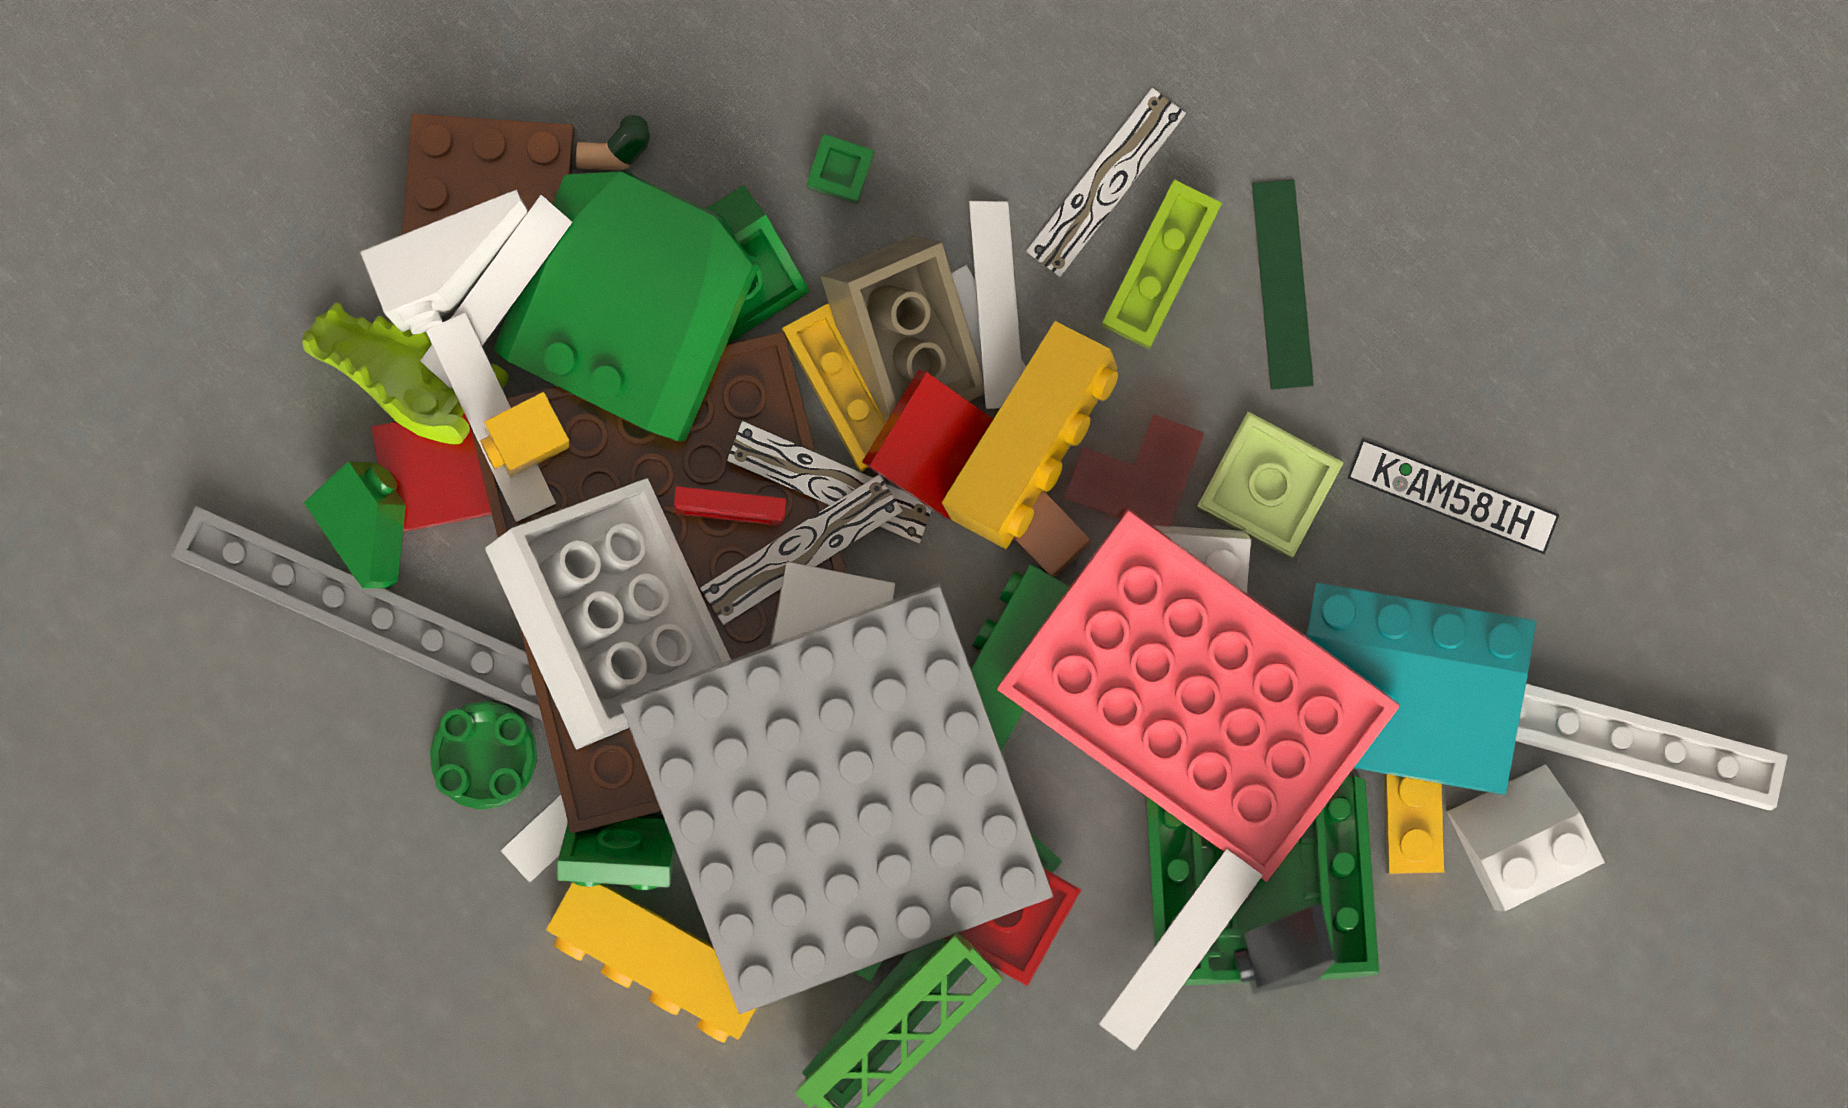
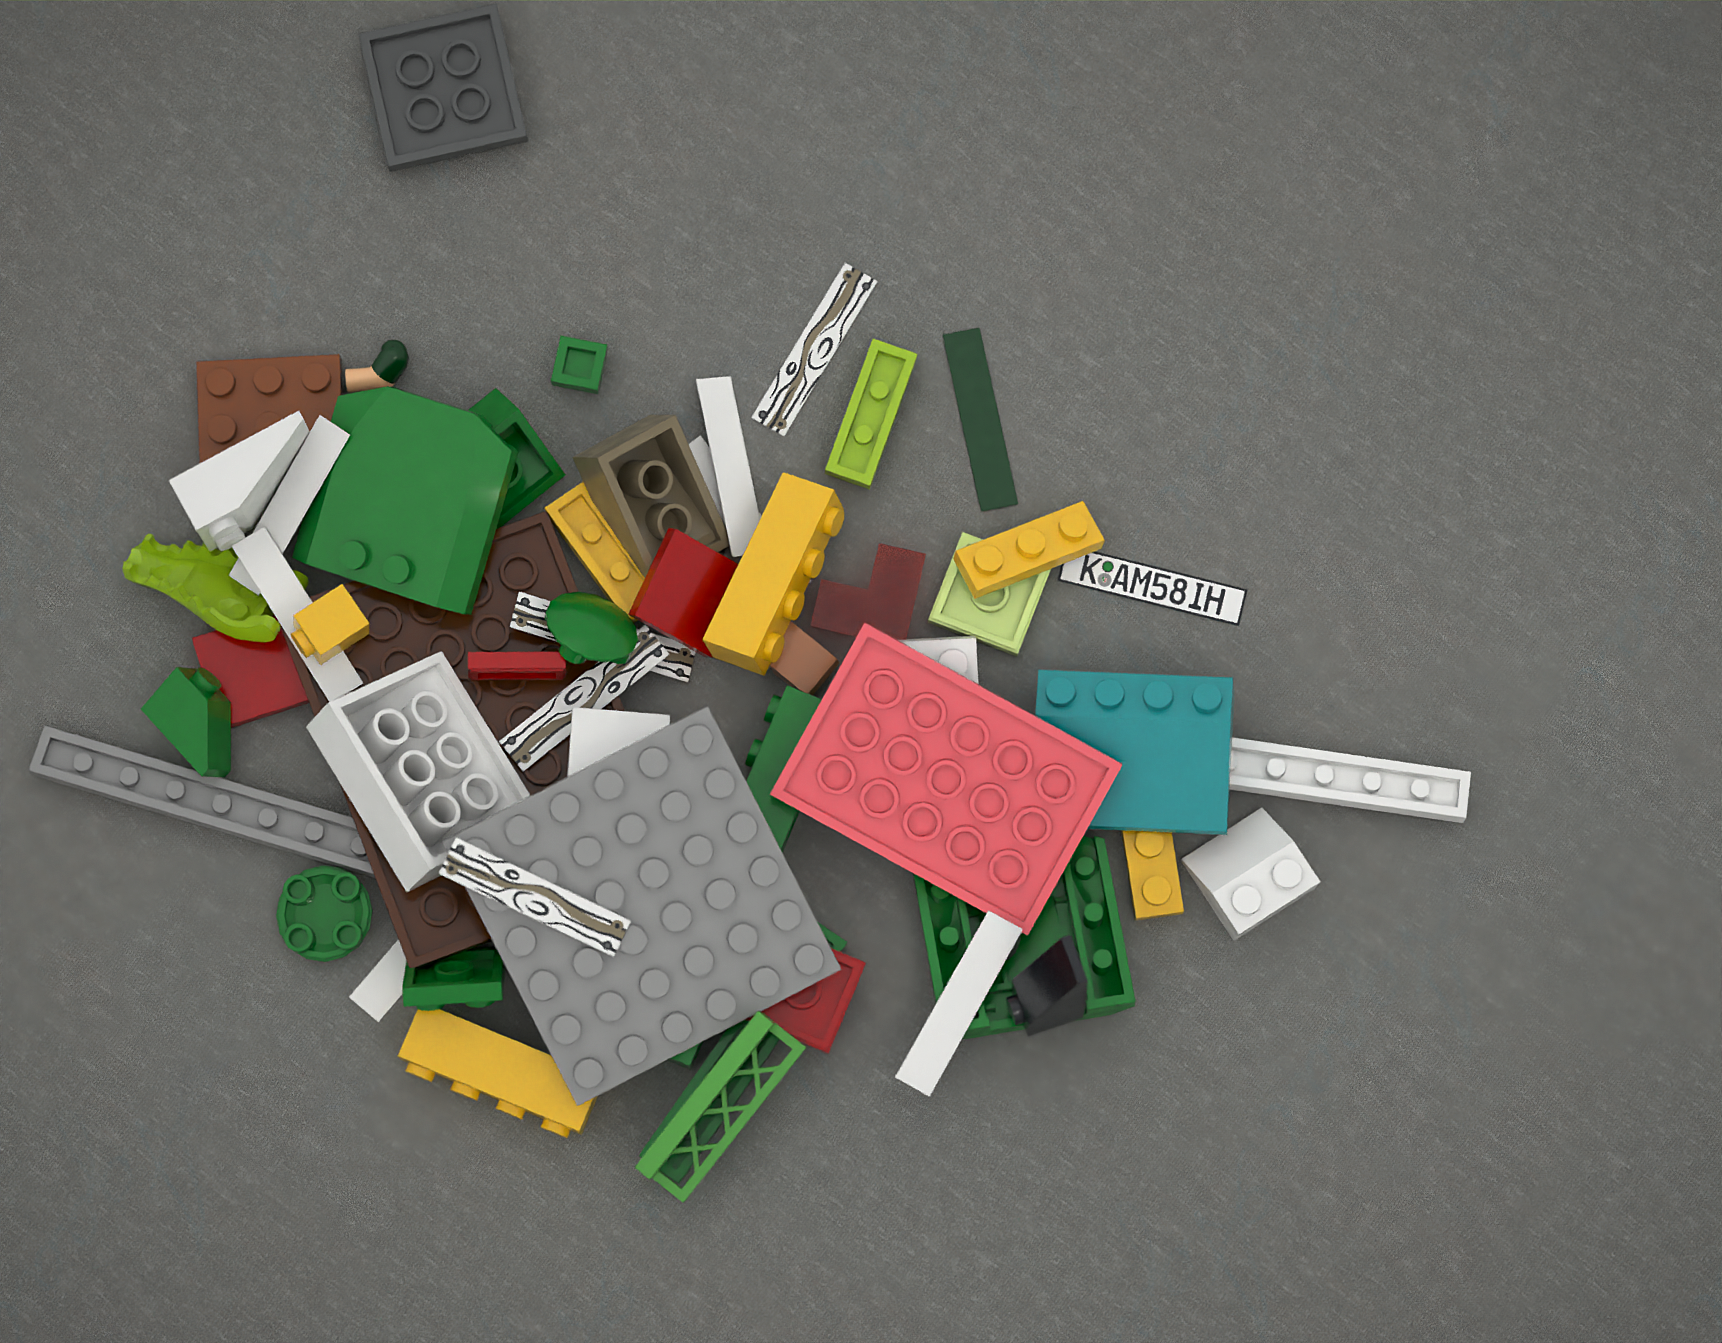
camera: 10 degrees left, 5 degrees down
(718, 779) = (534, 897): none -> sticker
(817, 474) = (591, 628): none -> green dish
(1320, 441) = (1028, 549): none -> yellow plate

